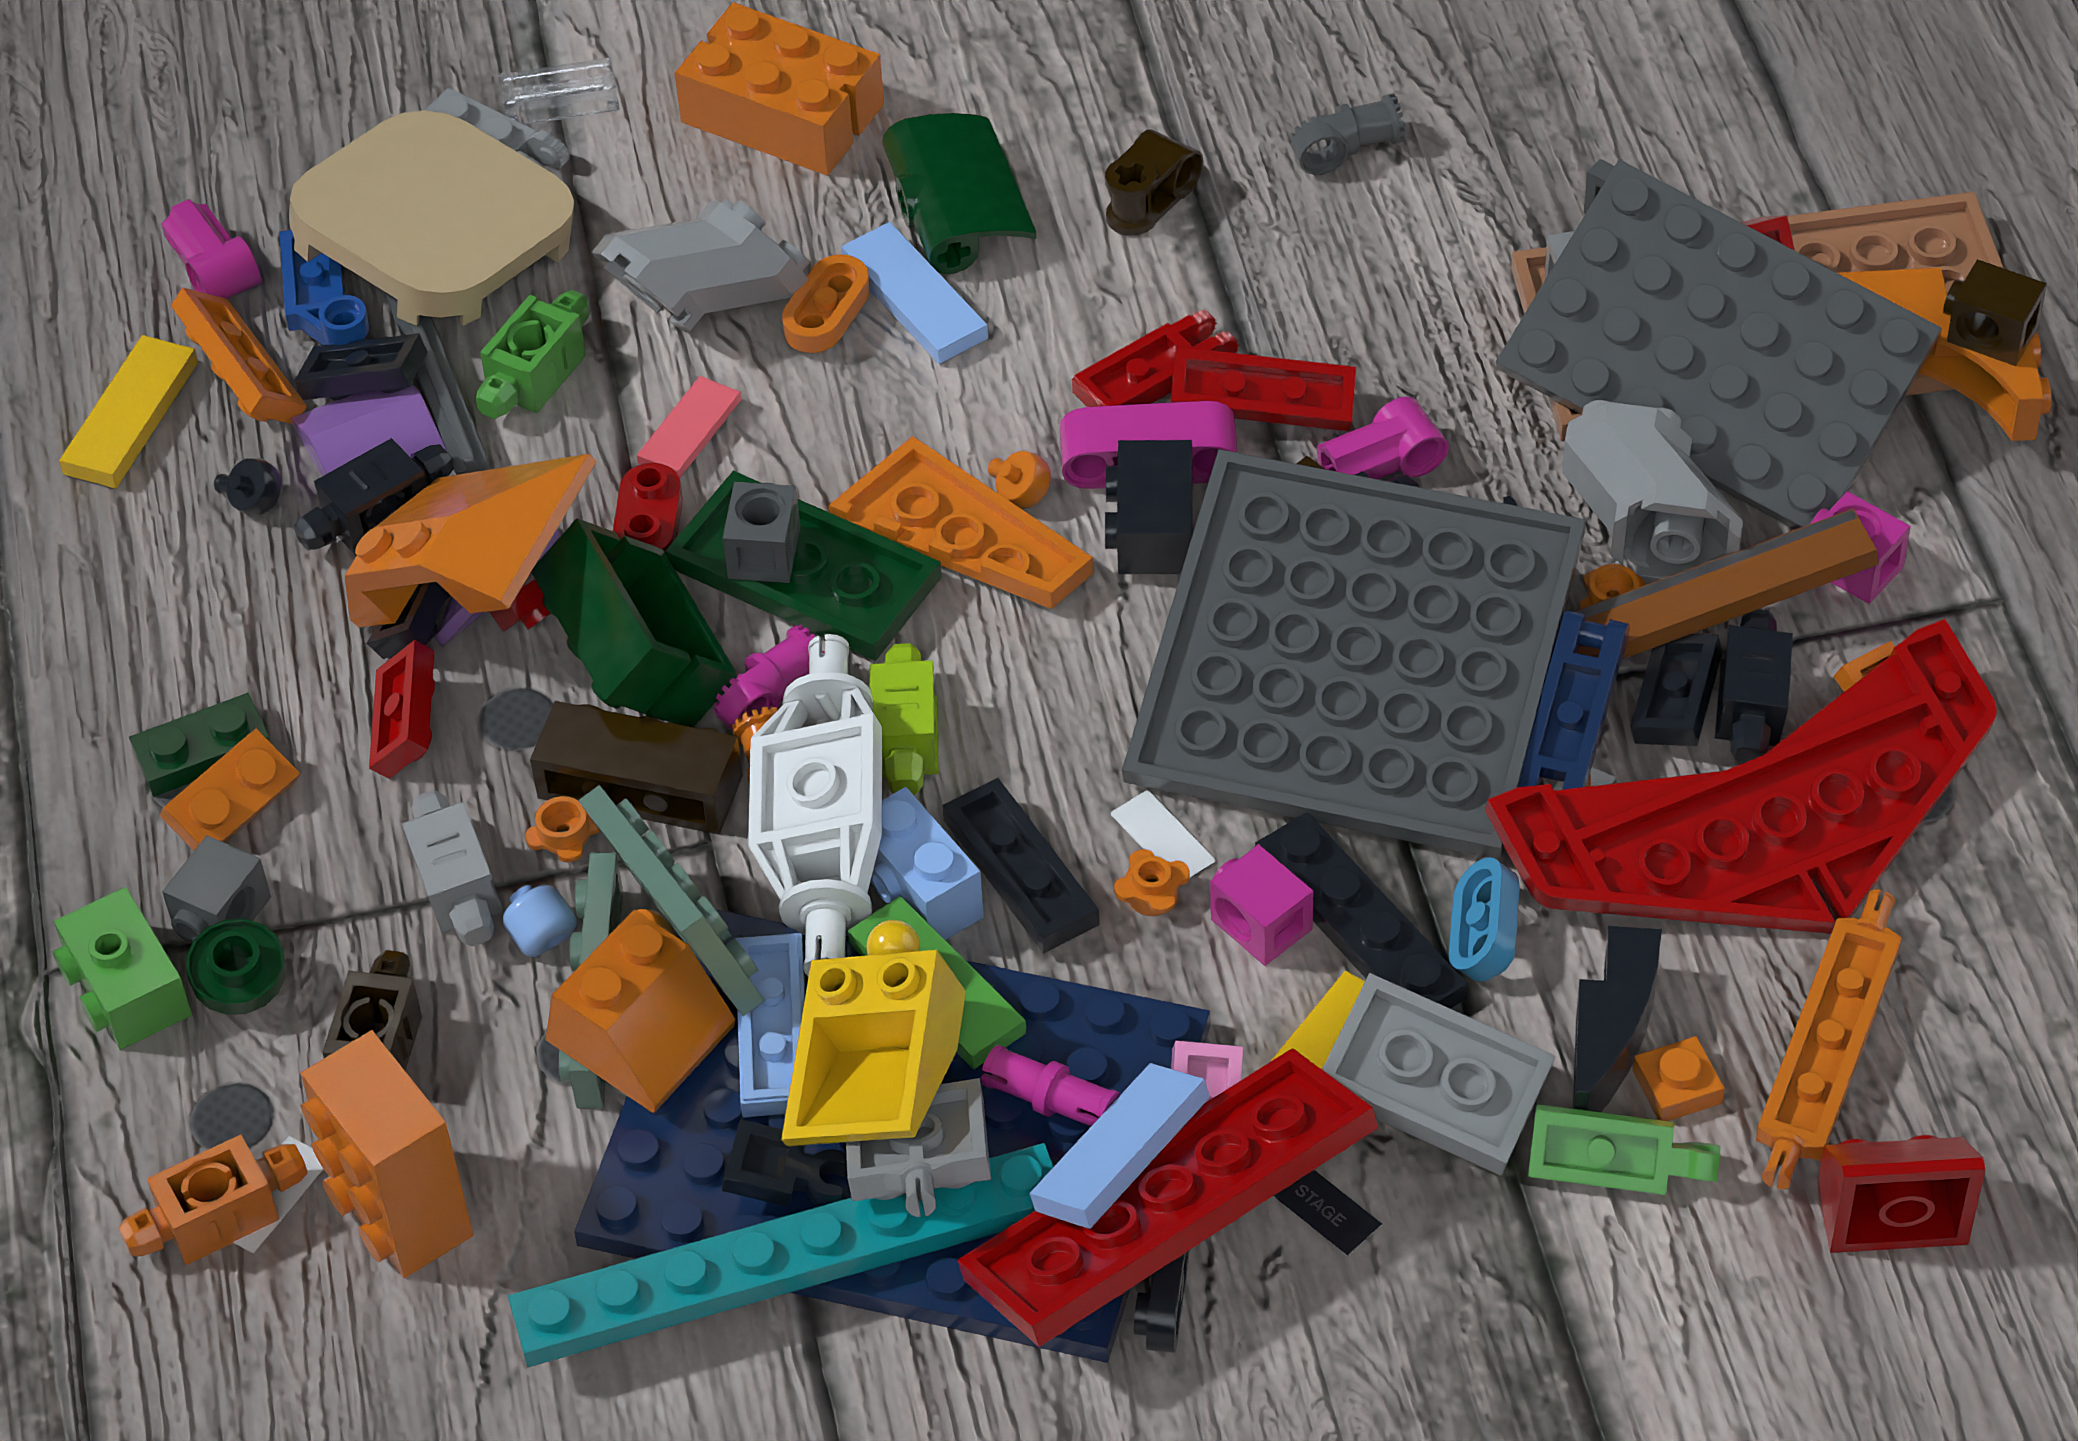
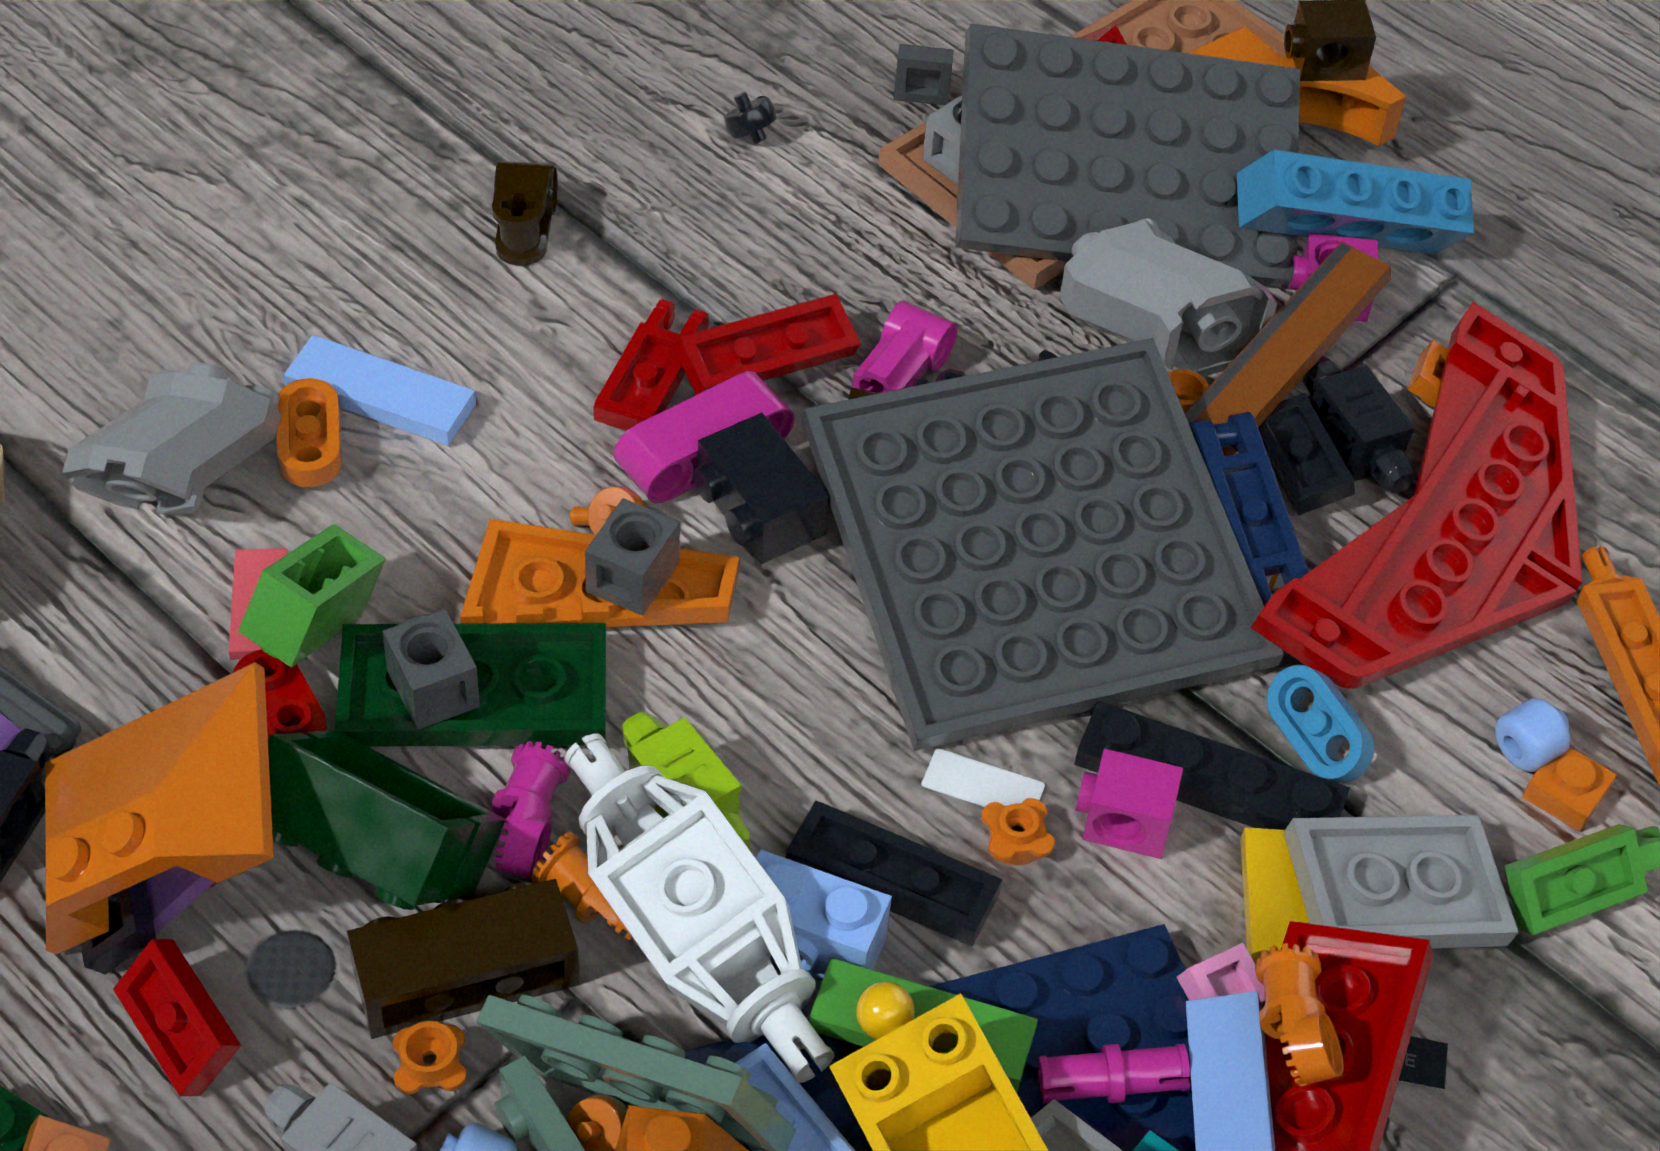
camera: 40 degrees left, 0 degrees up
(533, 354) = (48, 567): bright green piece -> none
(716, 431) = (311, 595): none -> bright green brick
(780, 88) = (118, 254): orange piece -> none
(954, 186) = (349, 281): dark green panel -> none
(991, 513) = (632, 556): none -> dark grey brick
(1211, 1107) = (1297, 1015): none -> orange connector
(1348, 131) = (660, 101): dark grey connector -> none
(1423, 176) = (750, 117): none -> black piece
(1614, 1015) = (1489, 759): black slope -> none
(1675, 1018) = (1532, 734): none -> light blue piece
(1908, 480) = (1354, 200): none -> dark azure brick

